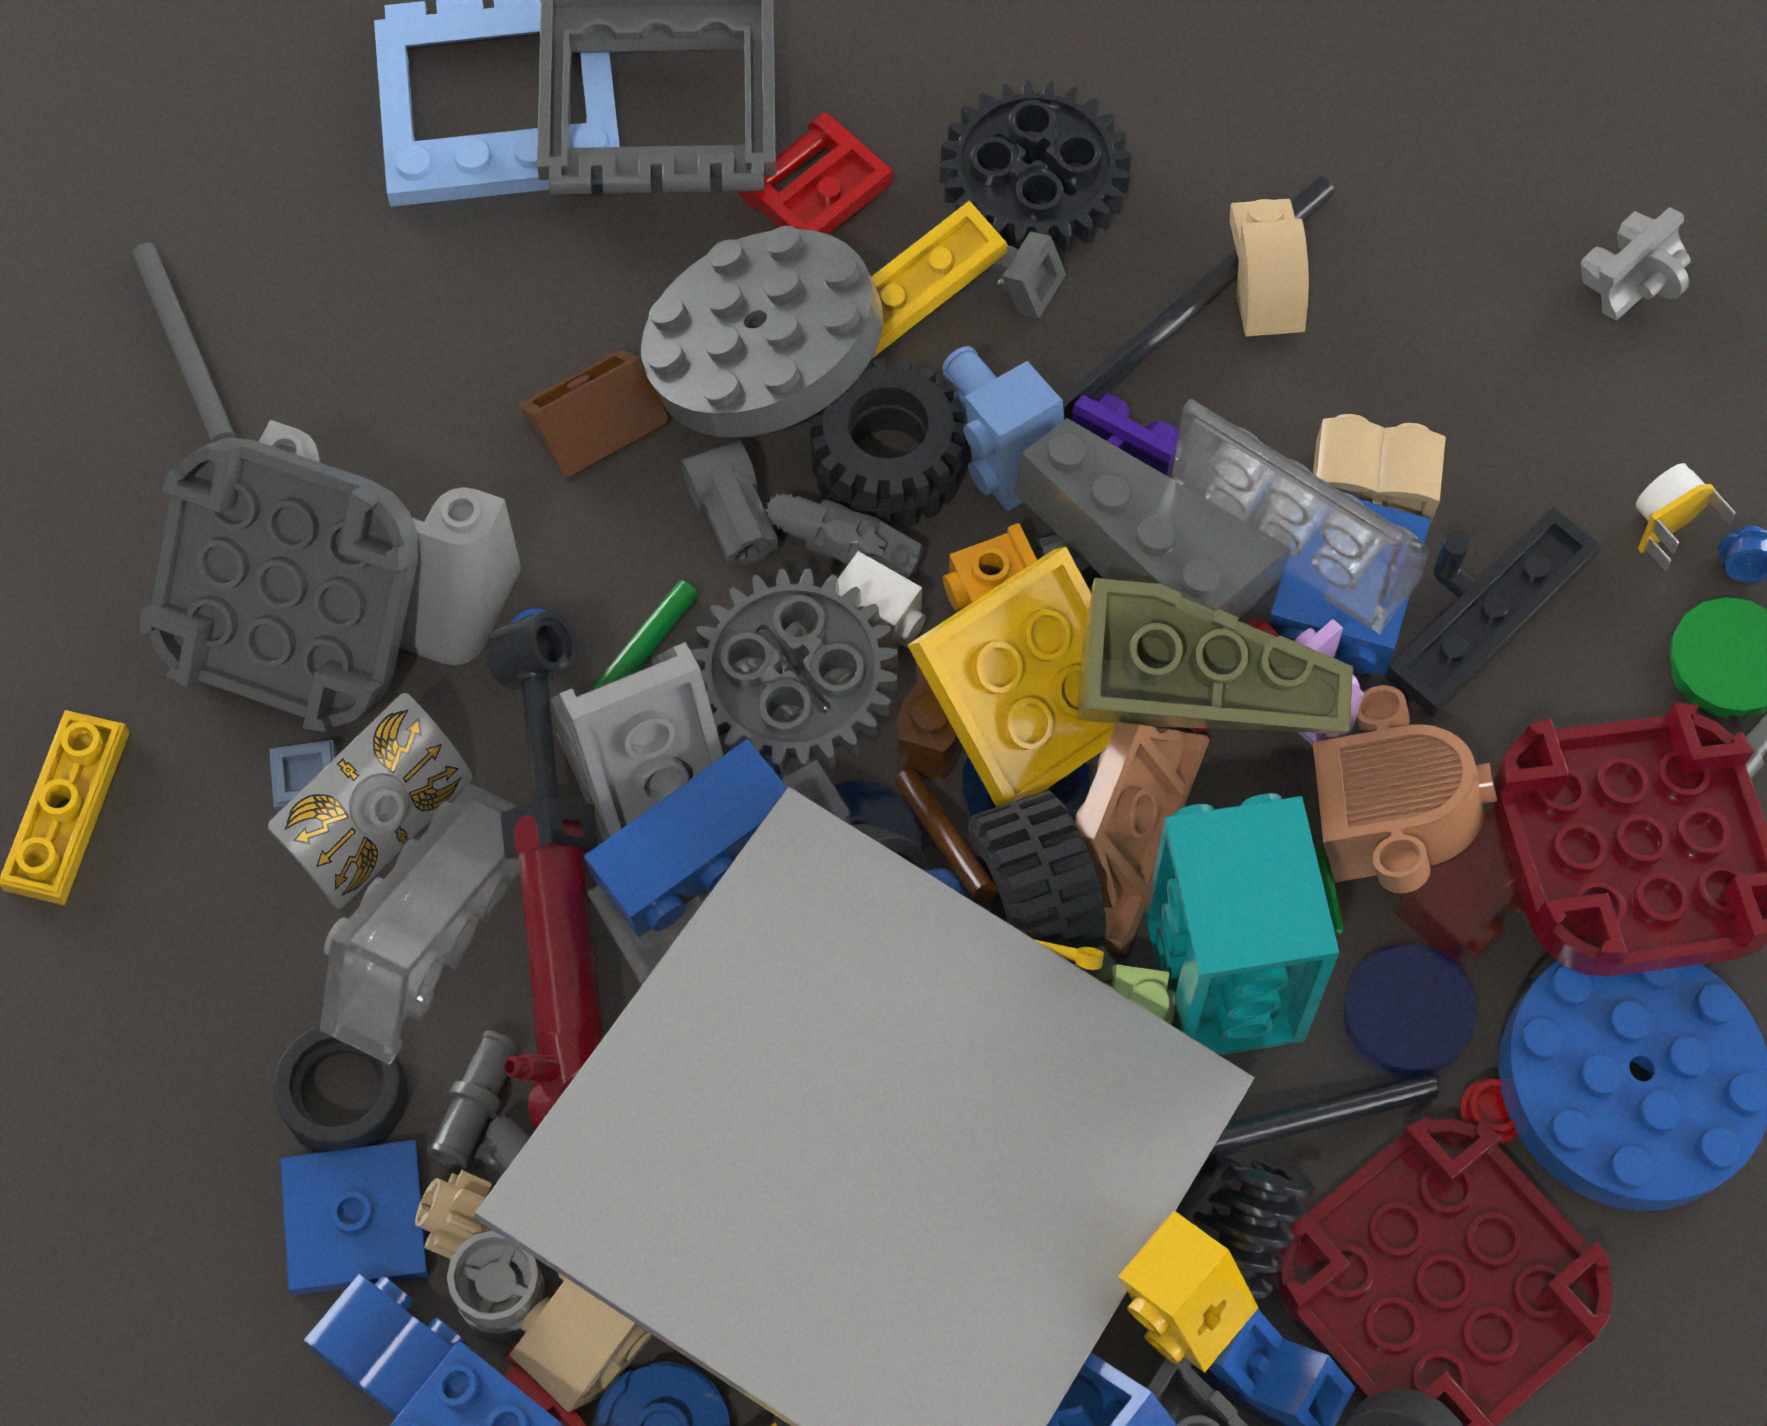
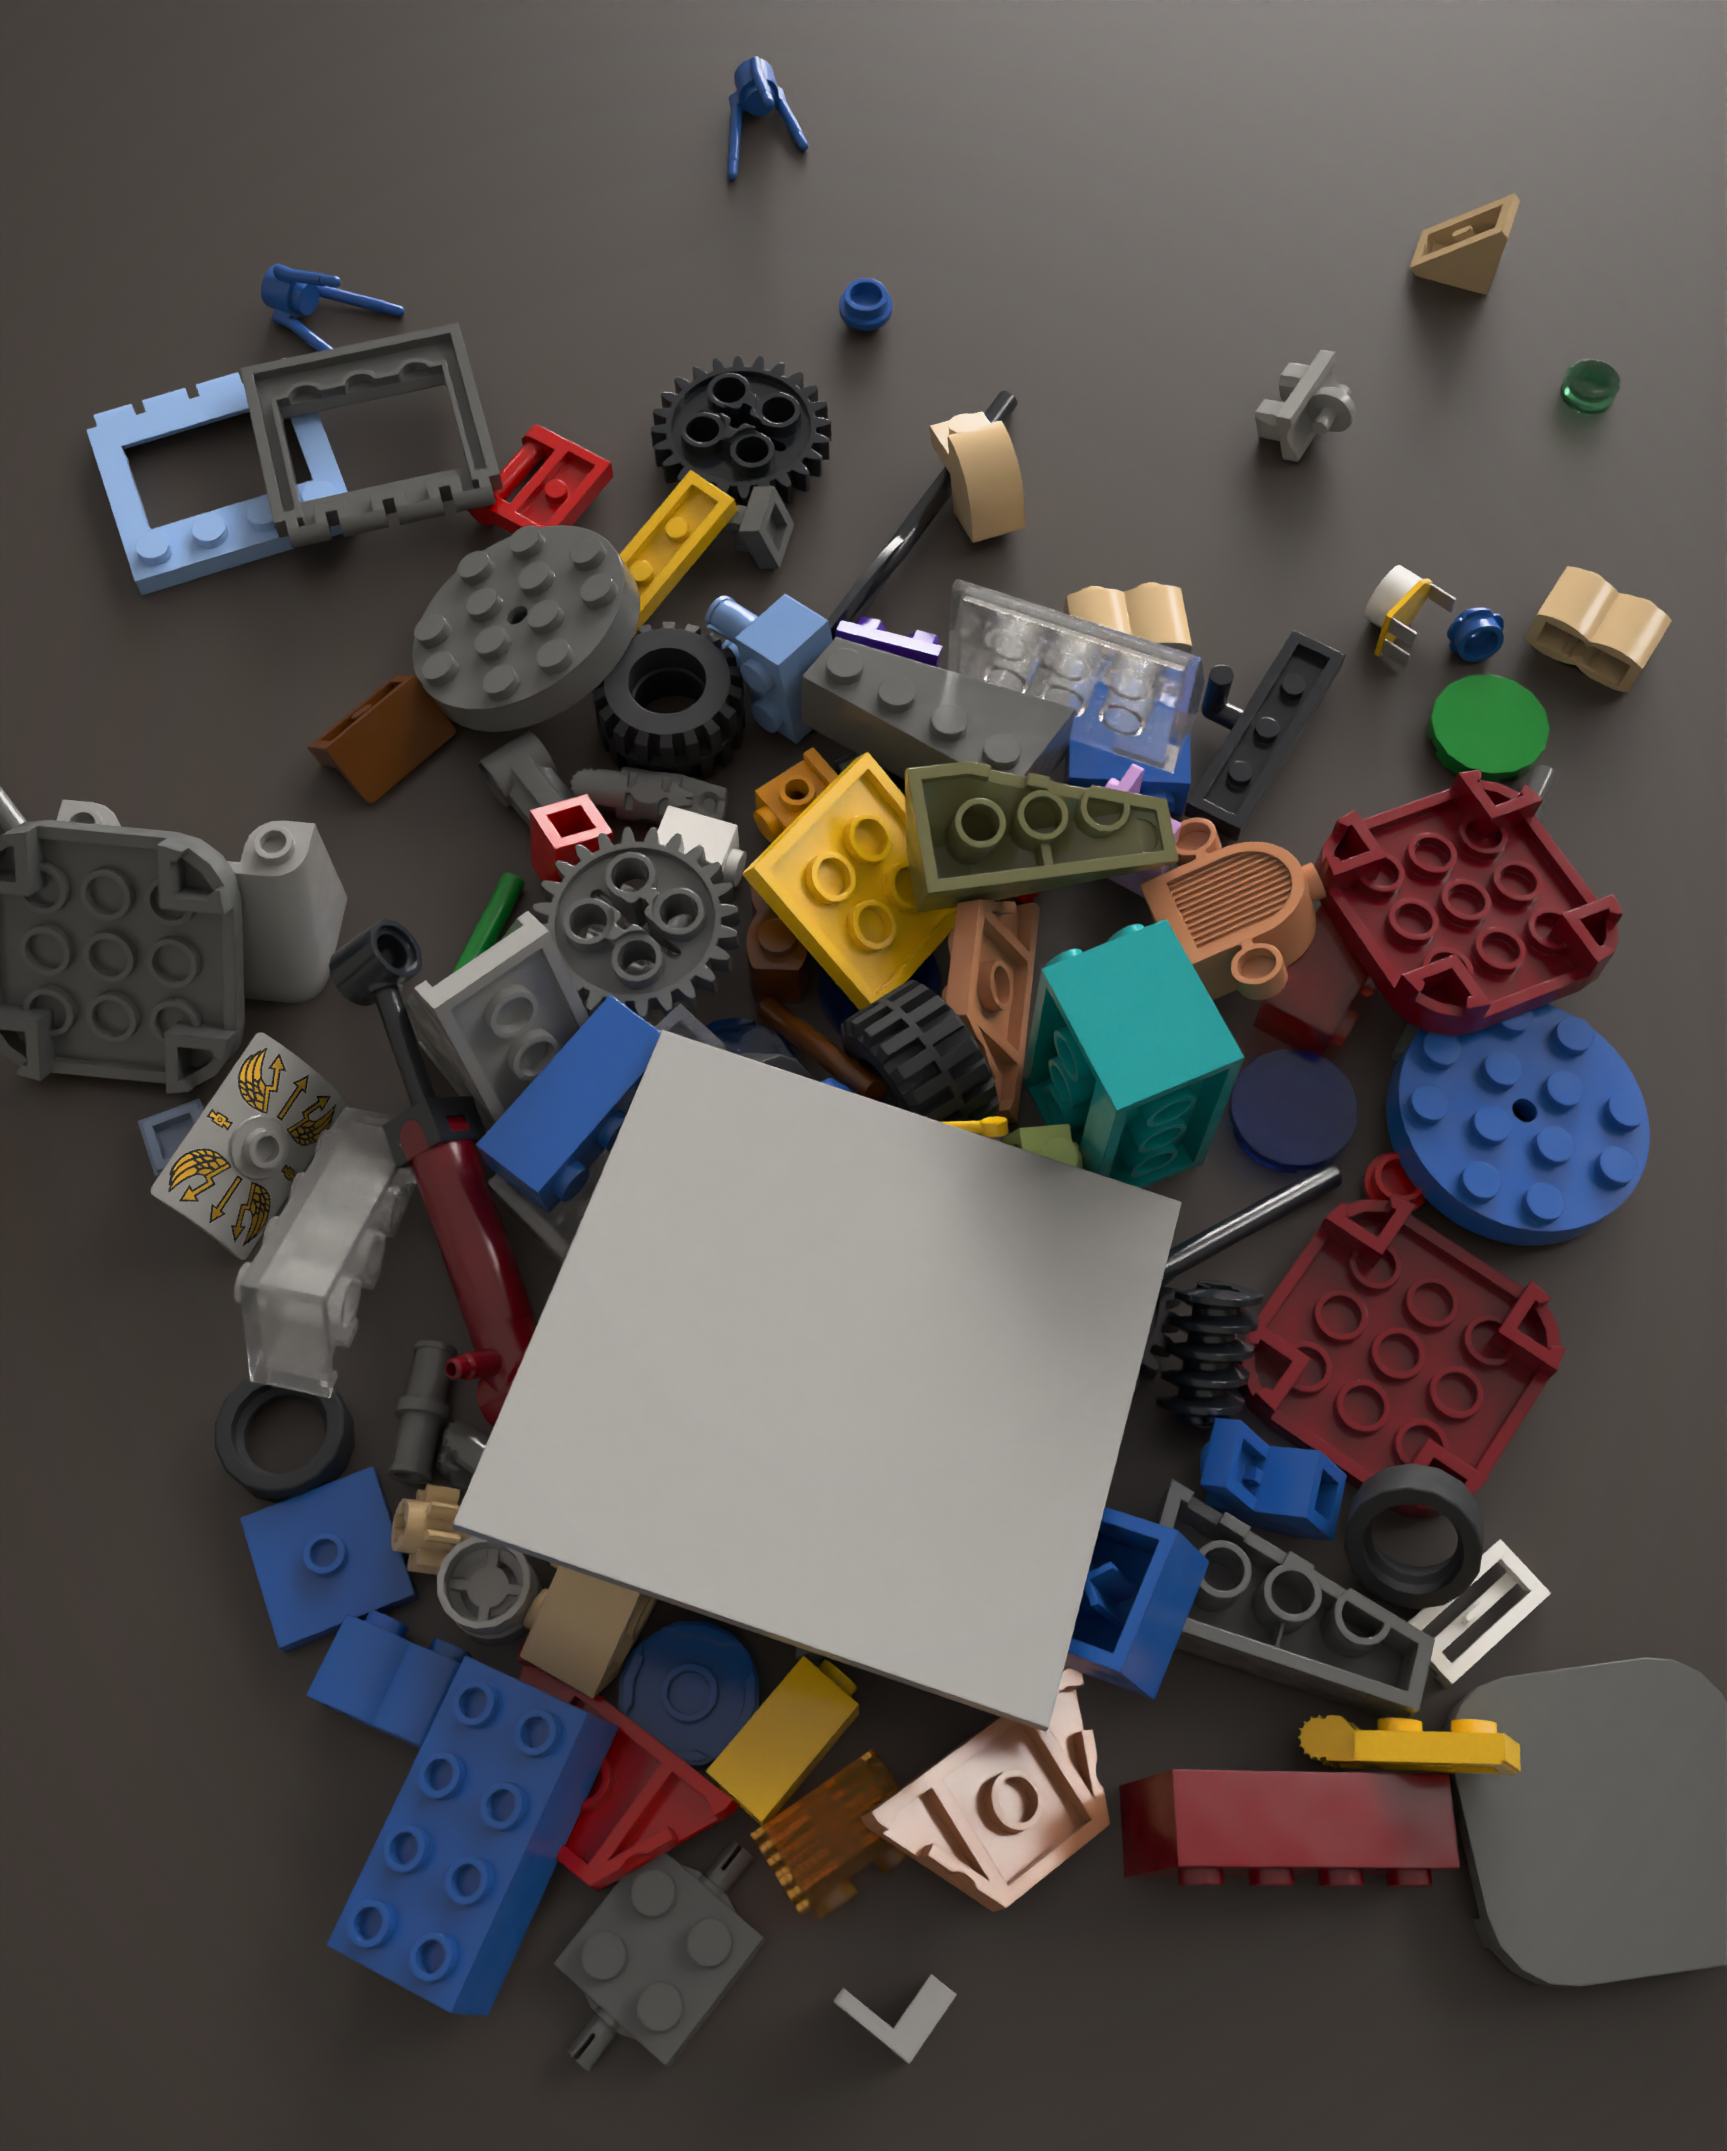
camera: 15 degrees left, 0 degrees up
(748, 552) = (559, 829): none -> red brick
(1187, 1293) = (1179, 1423): yellow brick -> none
(1202, 50) = (865, 304): none -> blue plate

